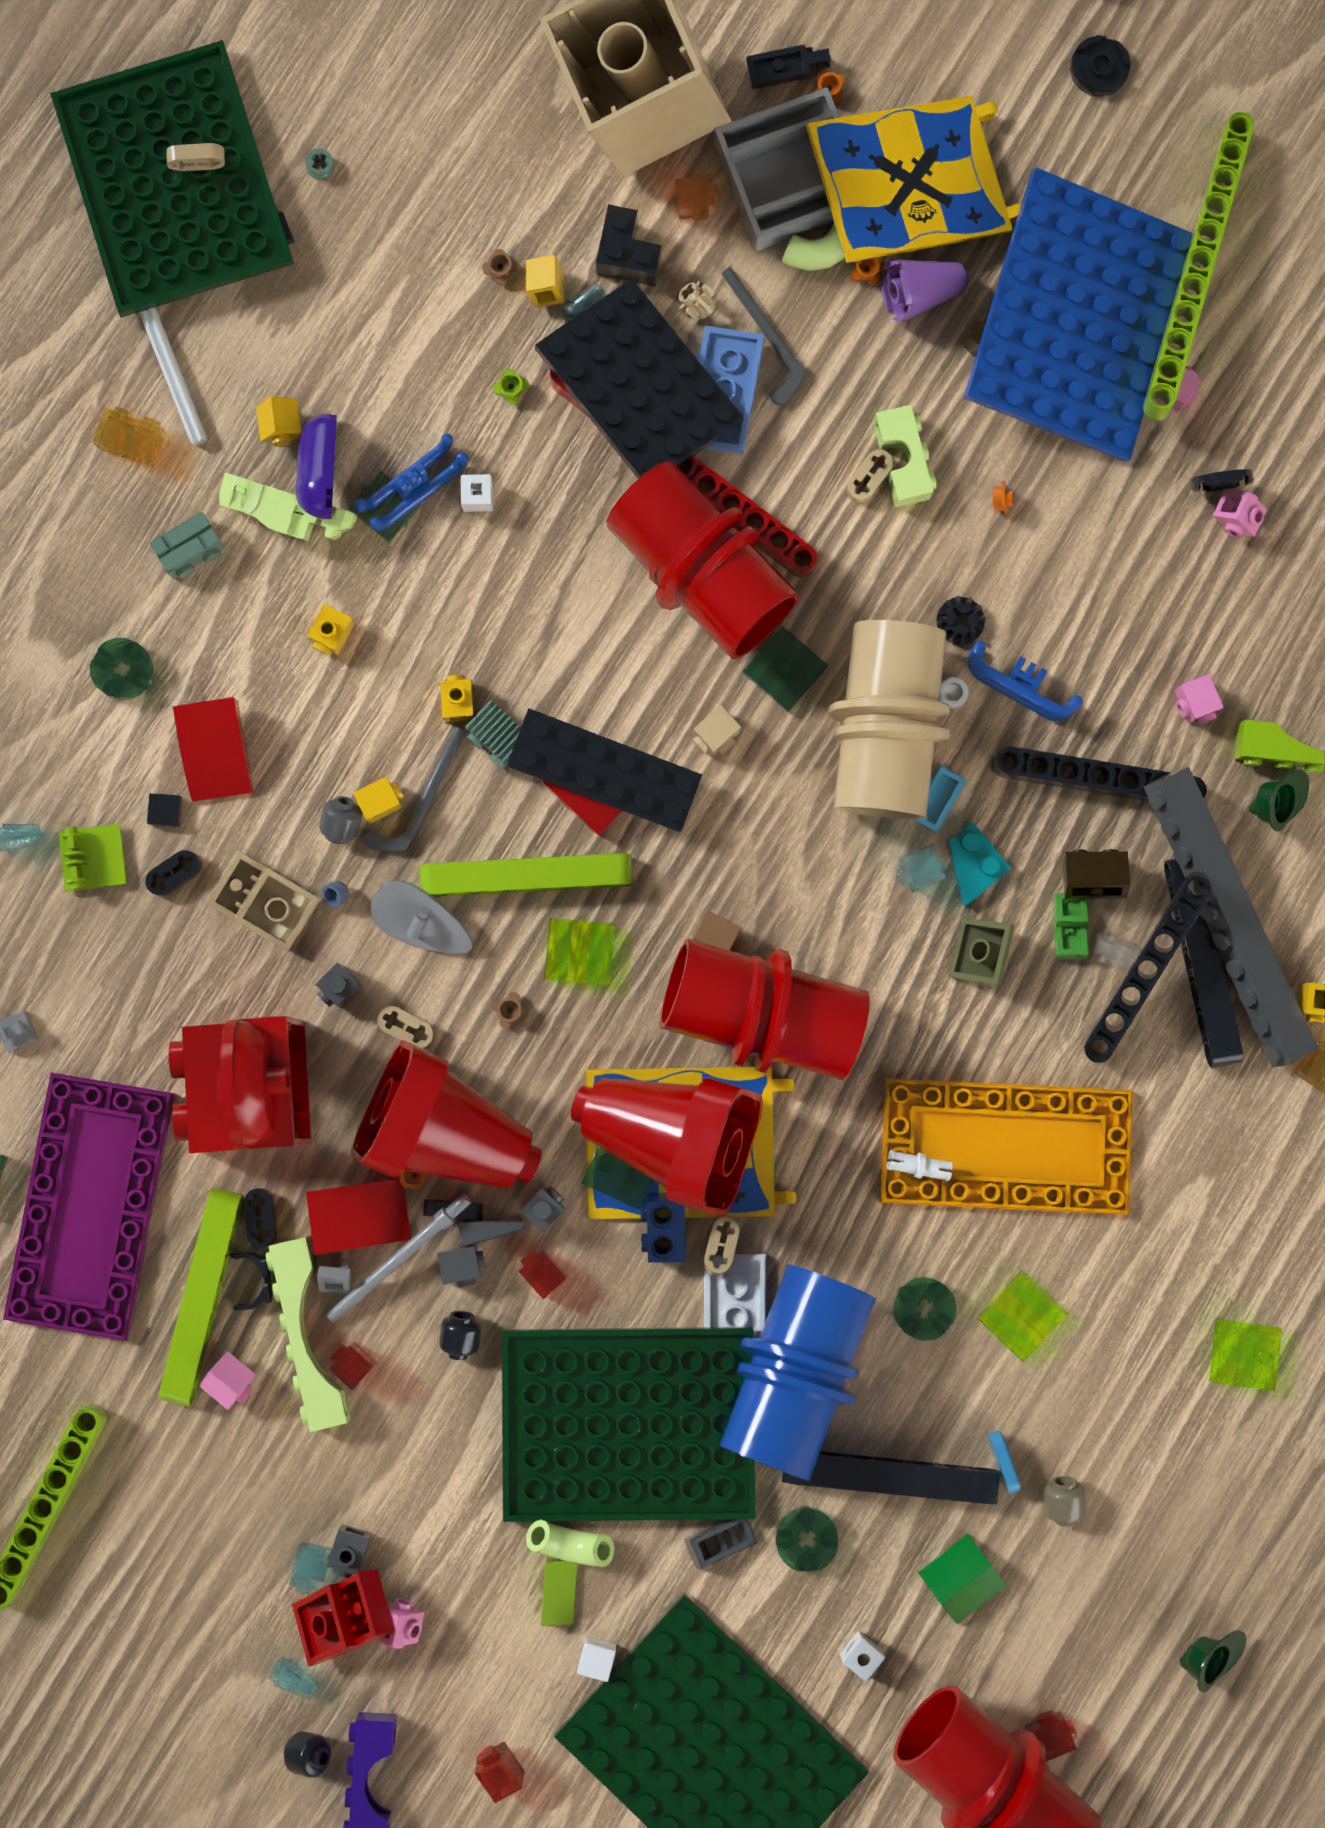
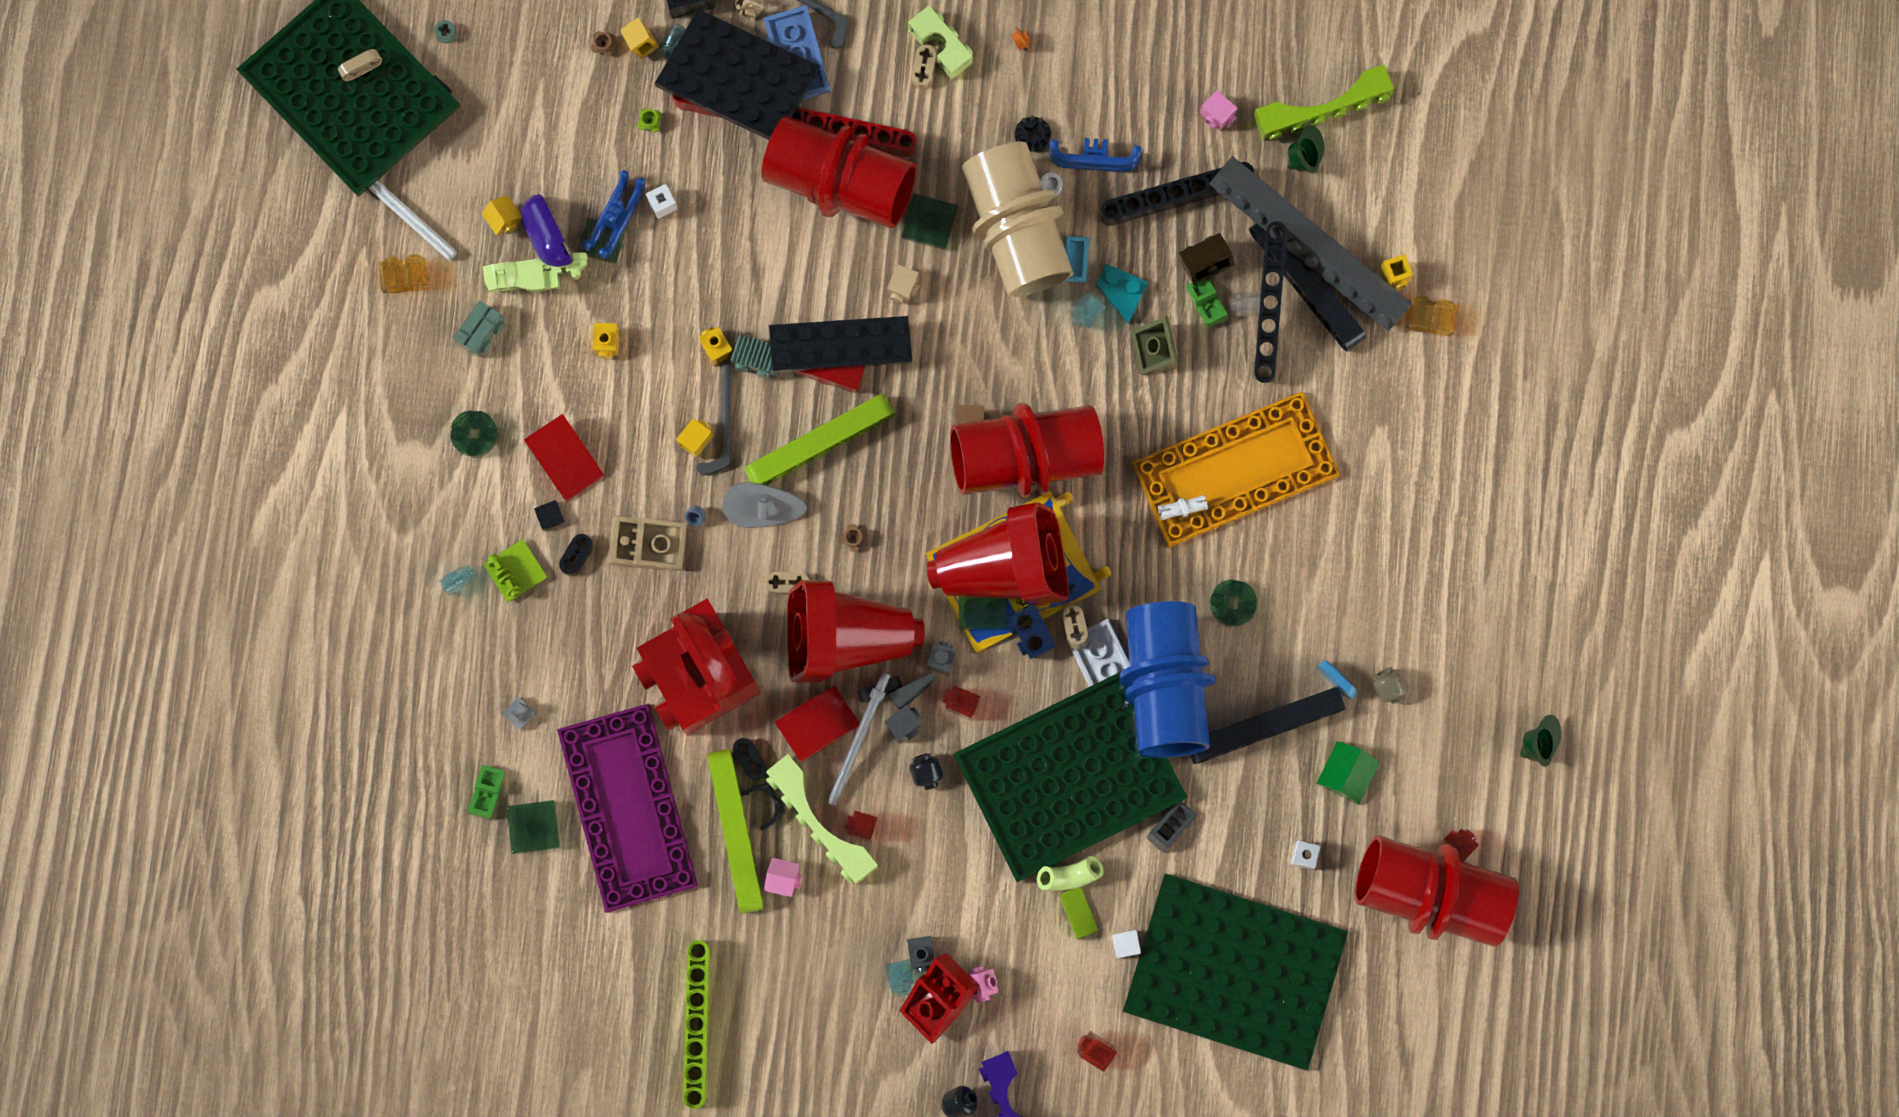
camera: 20 degrees left, 5 degrees down
(293, 1678) = (924, 1058): clear light blue cone -> none
(334, 1279) = (821, 774): light grey tile -> none
(338, 986) = (728, 576): dark grey brick -> none
(340, 820) = (675, 463): dark grey head -> none
(415, 1183) = (846, 684): orange plate -> none
(579, 951) = (882, 476): clear neon green slope -> none
(805, 1520) = (1234, 808): clear green plate -> none
(1022, 1315) = (1302, 577): clear neon green slope -> none
(1245, 1354) = (1464, 530): clear neon green slope -> none

